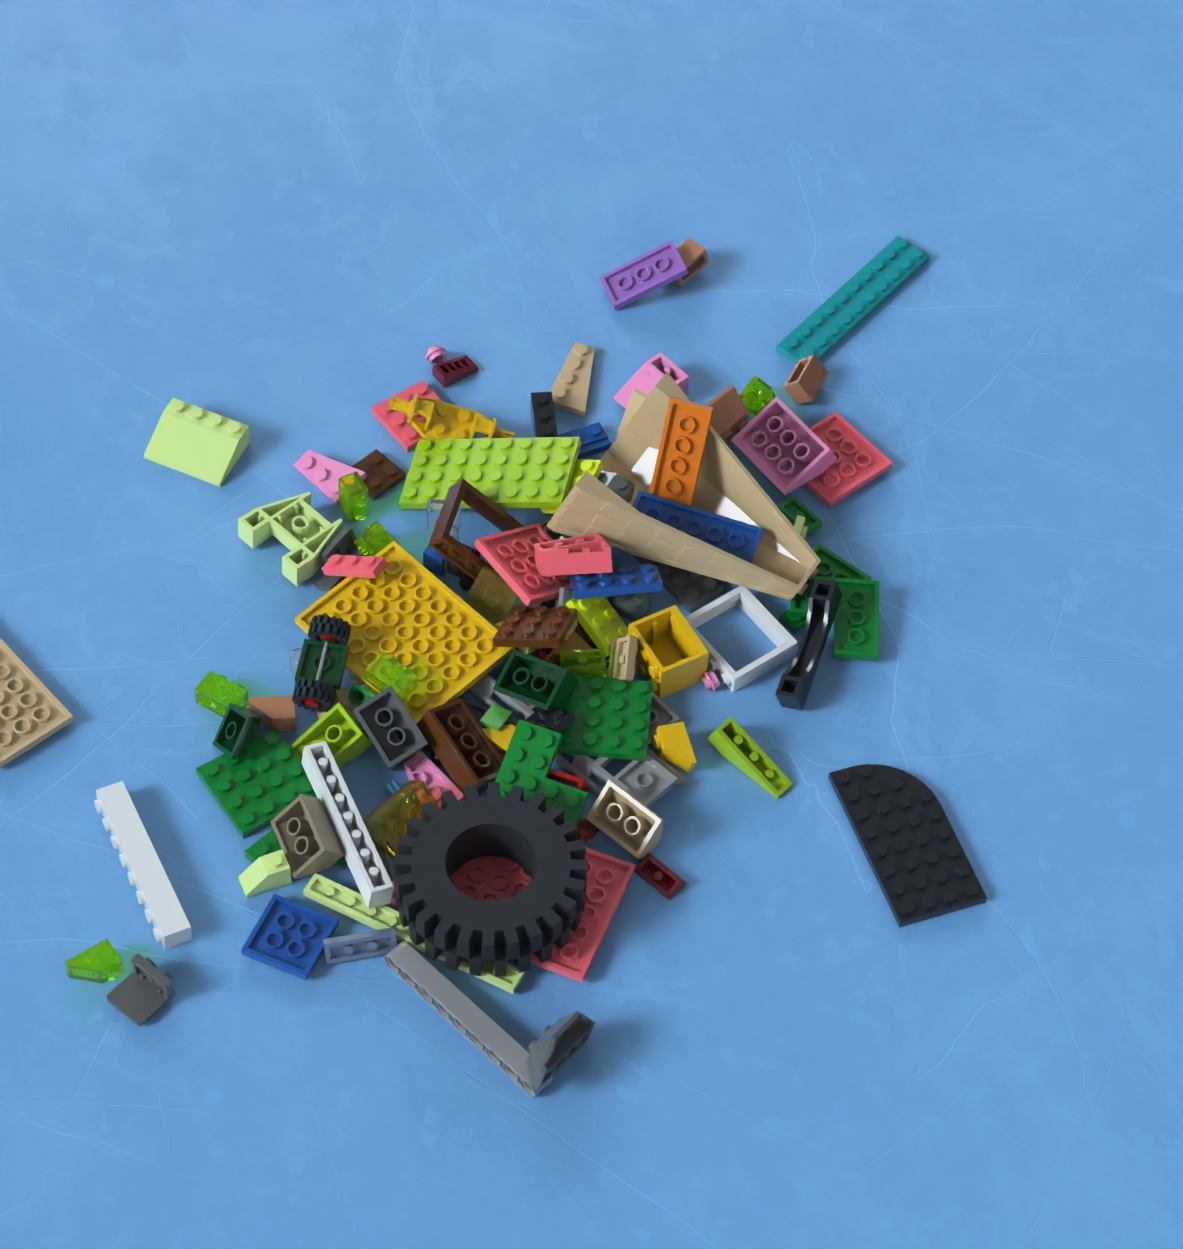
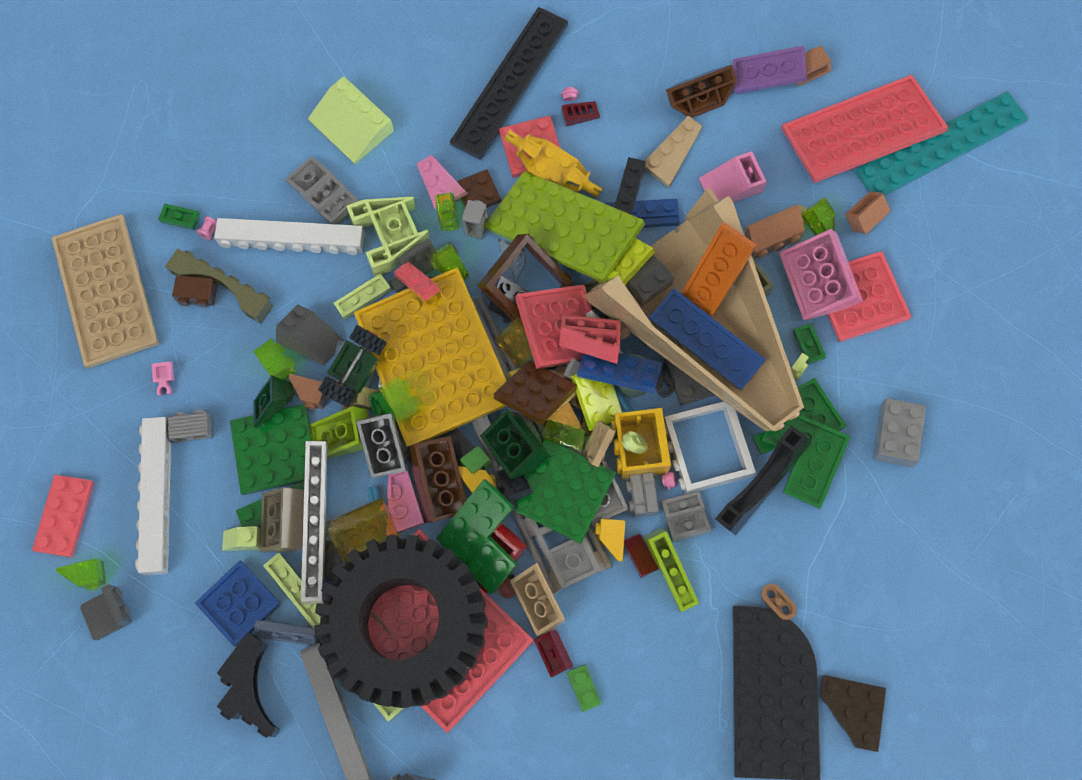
camera: 30 degrees right, 20 degrees up
(38, 589) = (179, 216): none -> green plate
(40, 920) = (63, 516): none -> coral plate
(75, 635) = (251, 303): none -> olive arch
(79, 590) = (207, 228): none -> bright pink bush
(93, 655) = (194, 291): none -> reddish brown brick
(95, 747) = (163, 374): none -> bright pink plate
(153, 786) = (190, 426): none -> light grey brick
(180, 571) = (290, 236): none -> white brick
(195, 519) = (321, 190): none -> light grey slope
(250, 656) = (307, 335): none -> dark grey slope
(292, 605) = (362, 296): none -> yellowish green plate
(339, 1021) = (243, 697): none -> black arch
(362, 362) = (509, 83): none -> black plate
(389, 496) = (474, 219): none -> light grey brick
(582, 314) = (702, 91): none -> reddish brown wedge
(662, 645) = (634, 442): none -> yellowish green plate
(668, 593) = (668, 382): none -> black beam
(689, 701) = (643, 495): none -> light grey brick
(708, 897) = (584, 688): none -> bright green plate
(712, 760) = (640, 555): none -> dark red slope
(744, 707) = (685, 516): none -> light grey slope
(766, 305) = (863, 128): none -> coral plate
(874, 754) = (780, 600): none -> medium nougat plate
(926, 568) = (899, 432): none -> light grey brick
(993, 825) = (856, 709): none -> dark brown plate

